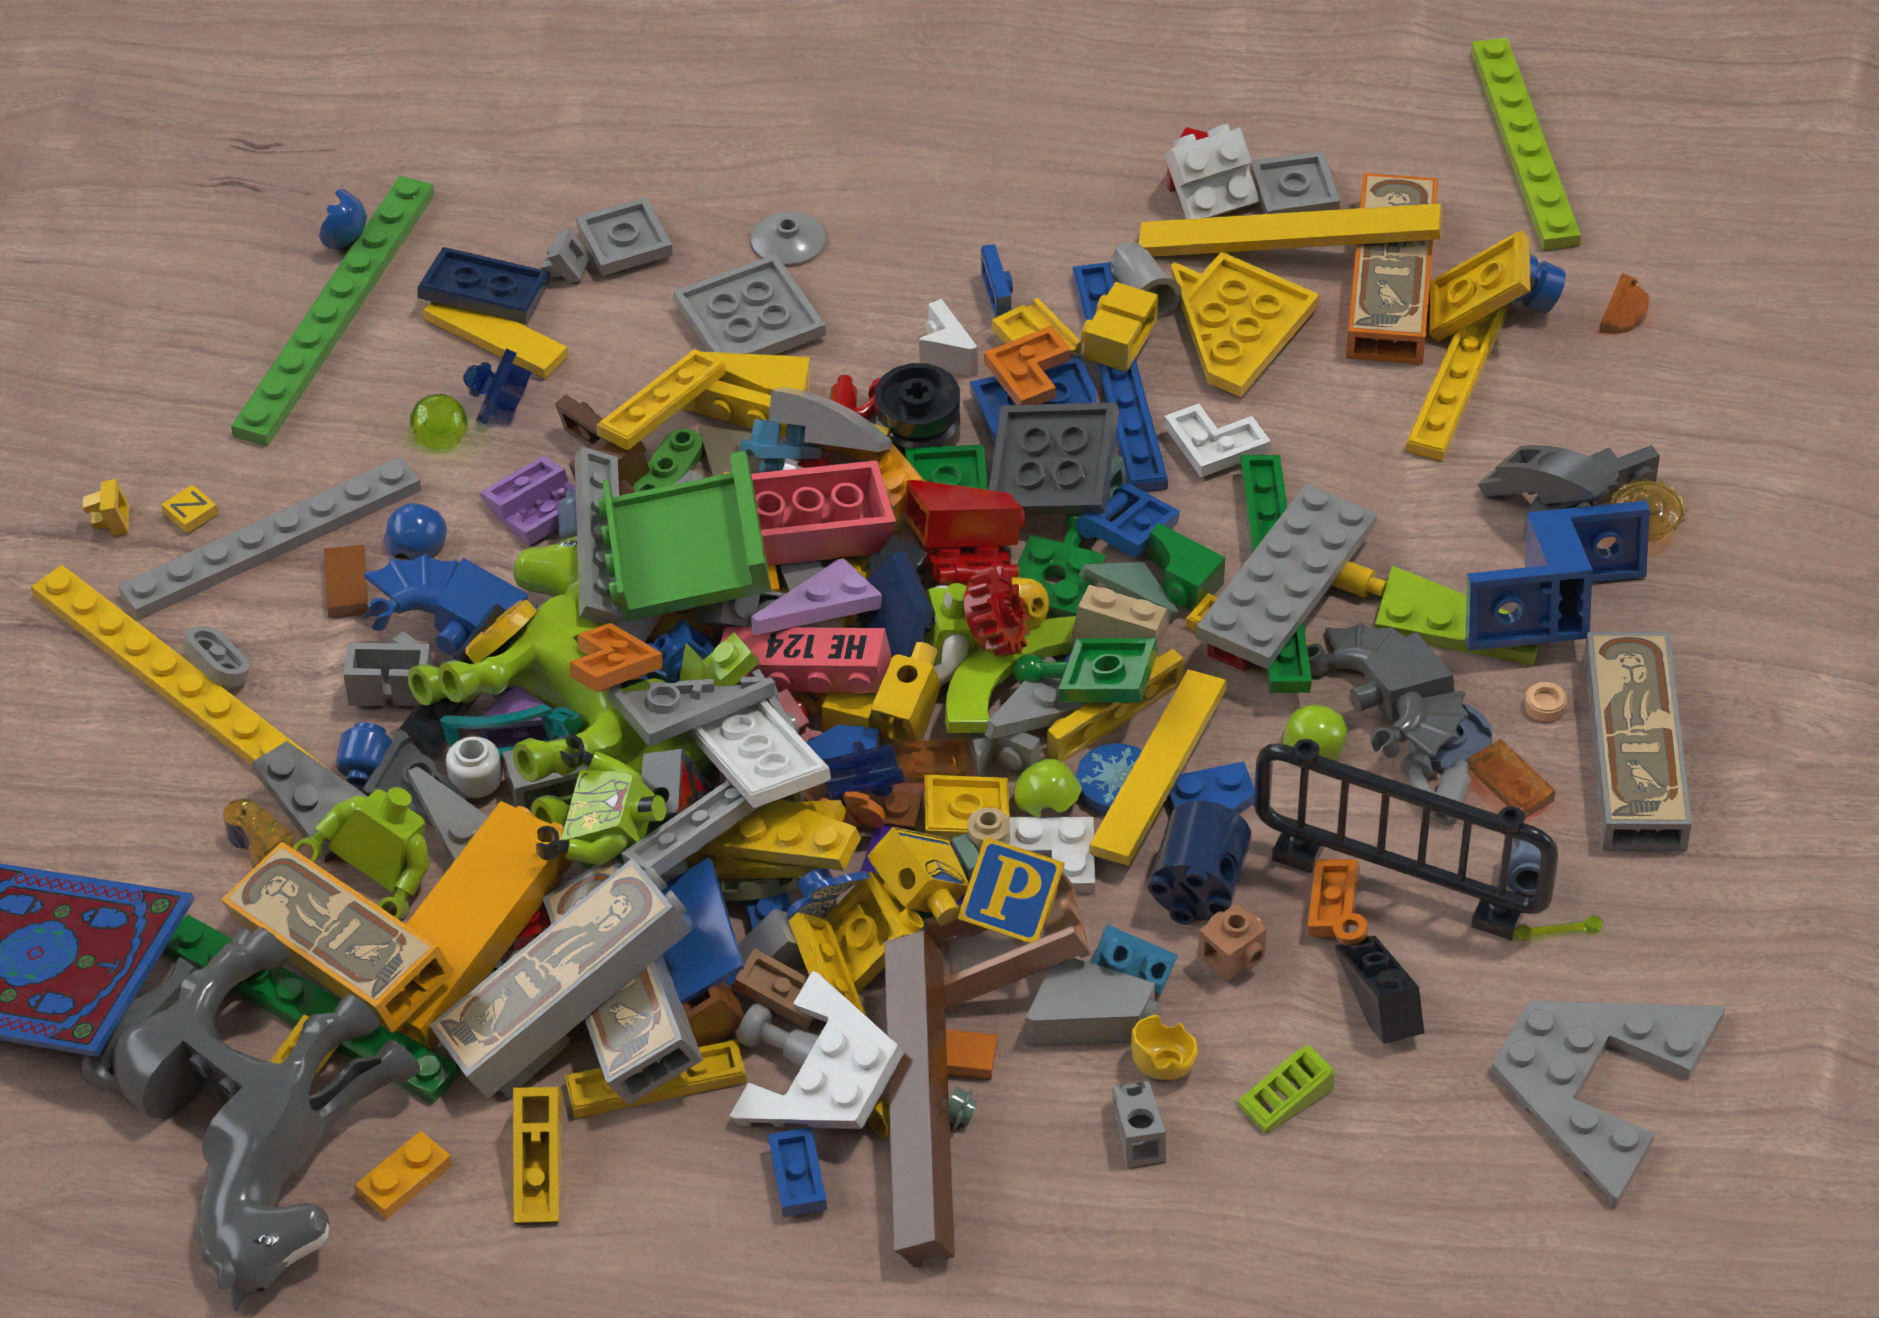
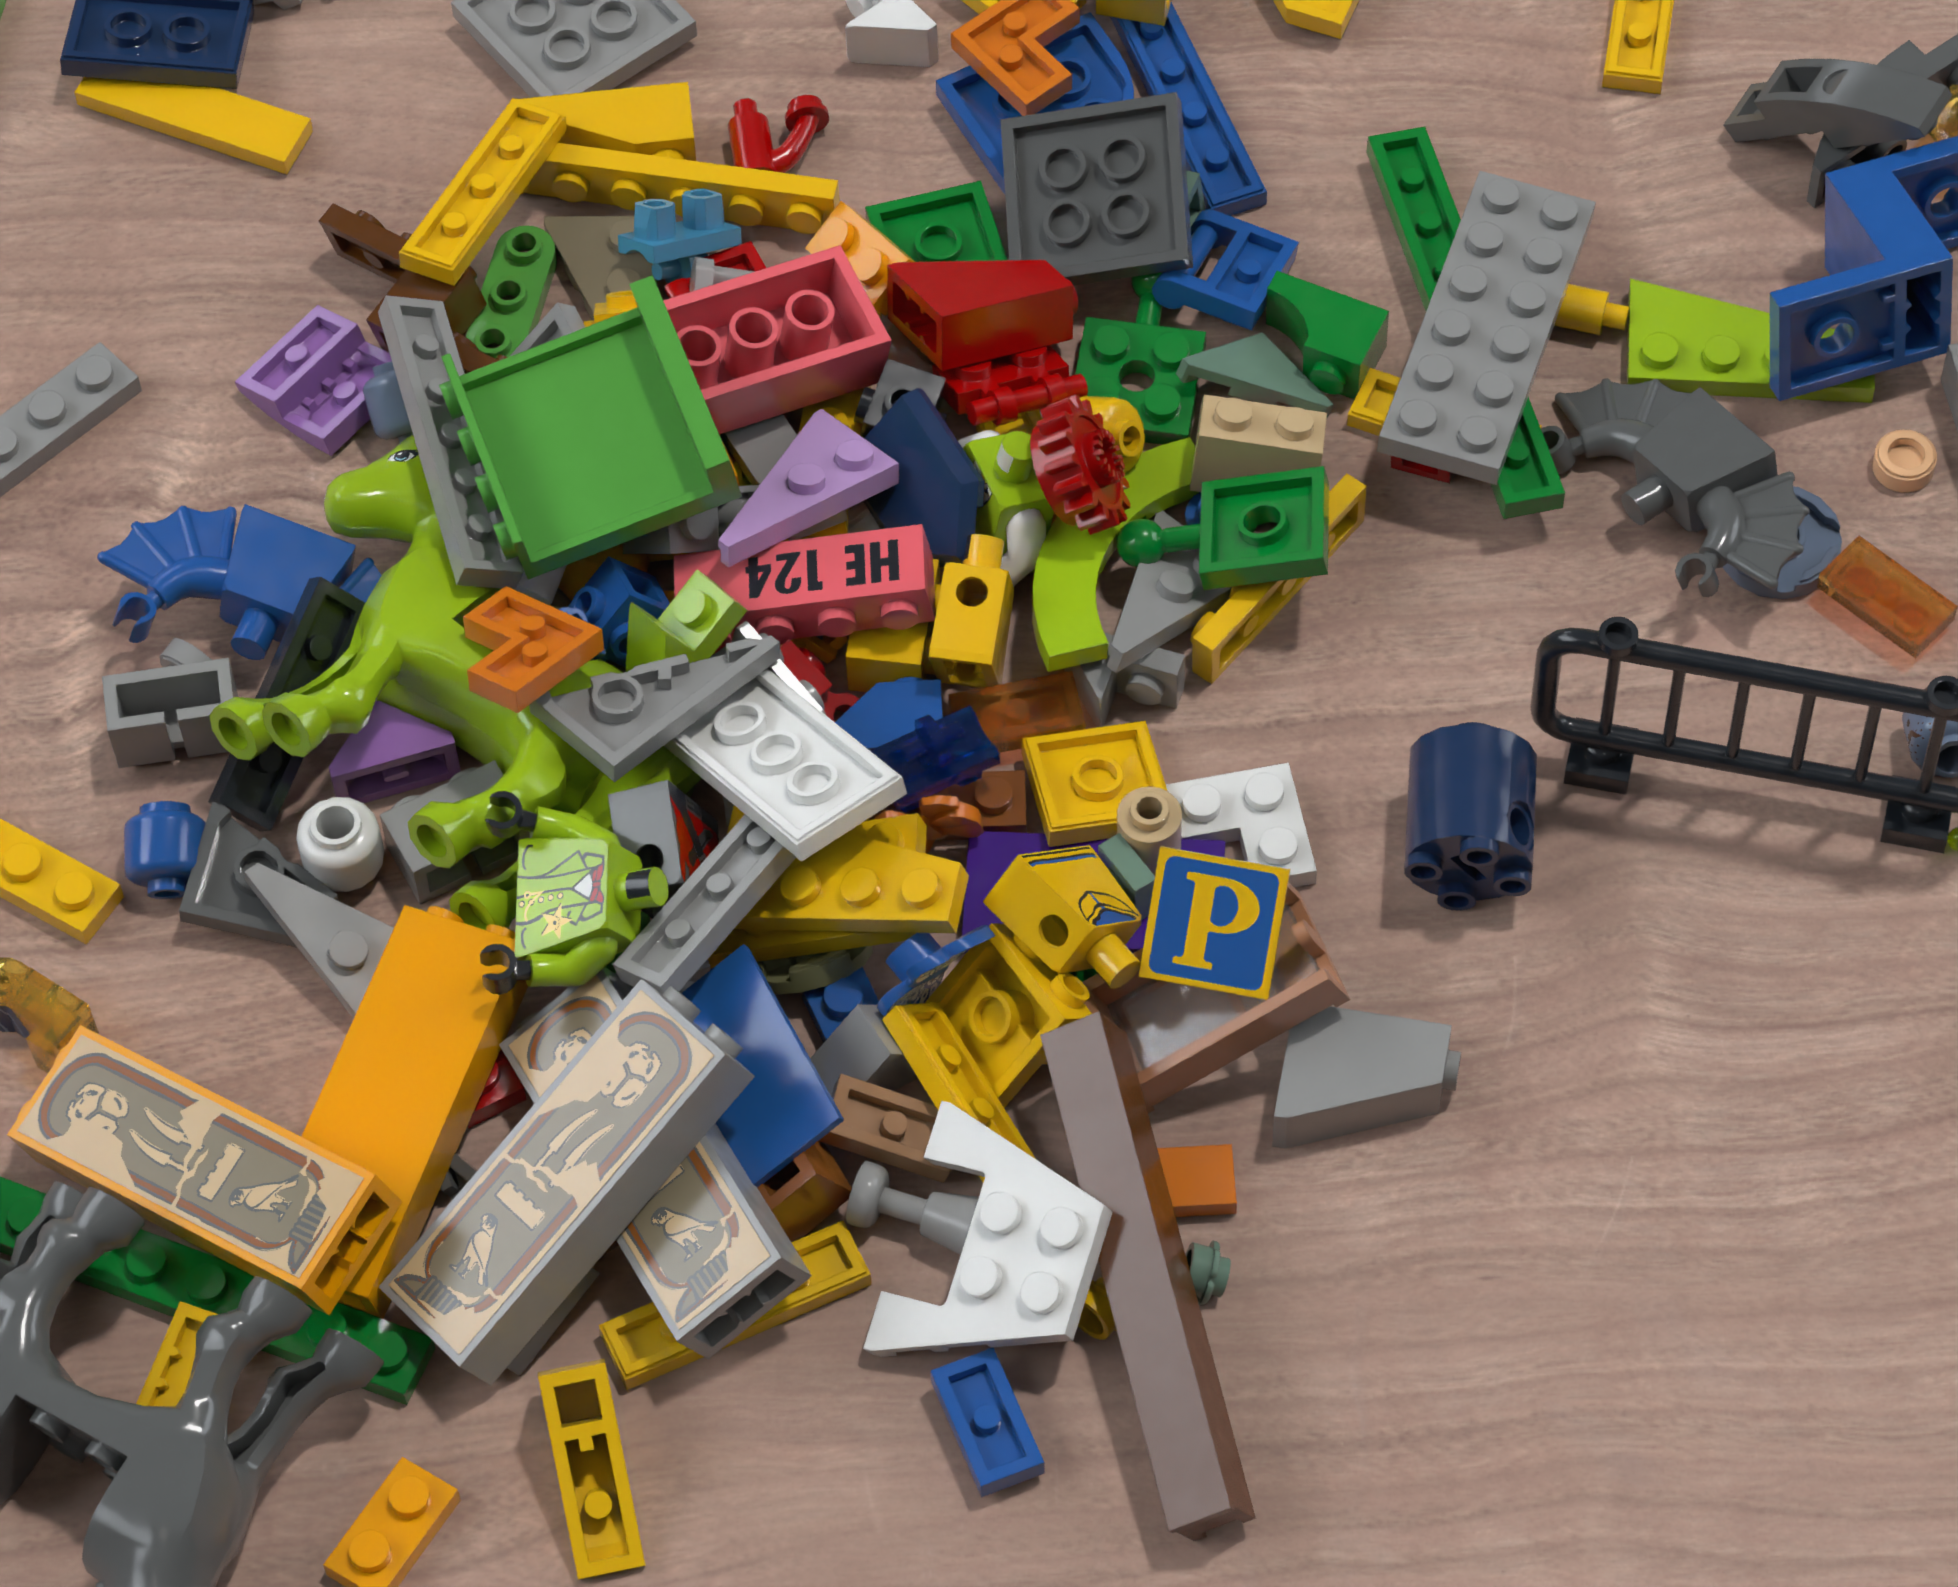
camera: 10 degrees left, 10 degrees up
(302, 788) = (113, 940): dark grey wing -> none
(345, 580) = (64, 561): dark orange tile -> none
(378, 839) = (227, 993): lime torso -> none
(415, 531) = (151, 464): blue hair -> none
(438, 421) = (142, 274): clear neon green hair -> none
(483, 380) = (228, 183): clear blue hips -> none
(499, 632) = (346, 619): yellow tile -> none
(568, 720) = (451, 753): teal sword -> none
(825, 420) = (743, 187): light grey slope -> none
(919, 406) = (871, 136): black wheel -> none
(1046, 785) = (1210, 728): lime hair -> none
(1104, 773) = (1308, 694): blue tile -> none
(1133, 957) = (1409, 987): dark azure hips -> none
(1139, 1124) = (1476, 1251): light grey leg -> none
(1157, 767) = (1367, 668): yellow tile -> none
(1163, 1050) = (1485, 1126): yellow hair -> none
(1211, 447) = (1320, 129): white plate -> none
(1221, 784) = (1449, 689): blue wing -> none
(1232, 941) = (1546, 933): nougat brick -> none
(1303, 1067) = (1705, 1123): lime slope -> none
(1320, 725) = (1582, 574): lime hair -> none
(1335, 901) = (1678, 841): orange hinge -> none
(1382, 989) = (1781, 969): black slope -> none
(1453, 783) = (1803, 622): light grey plant -> none

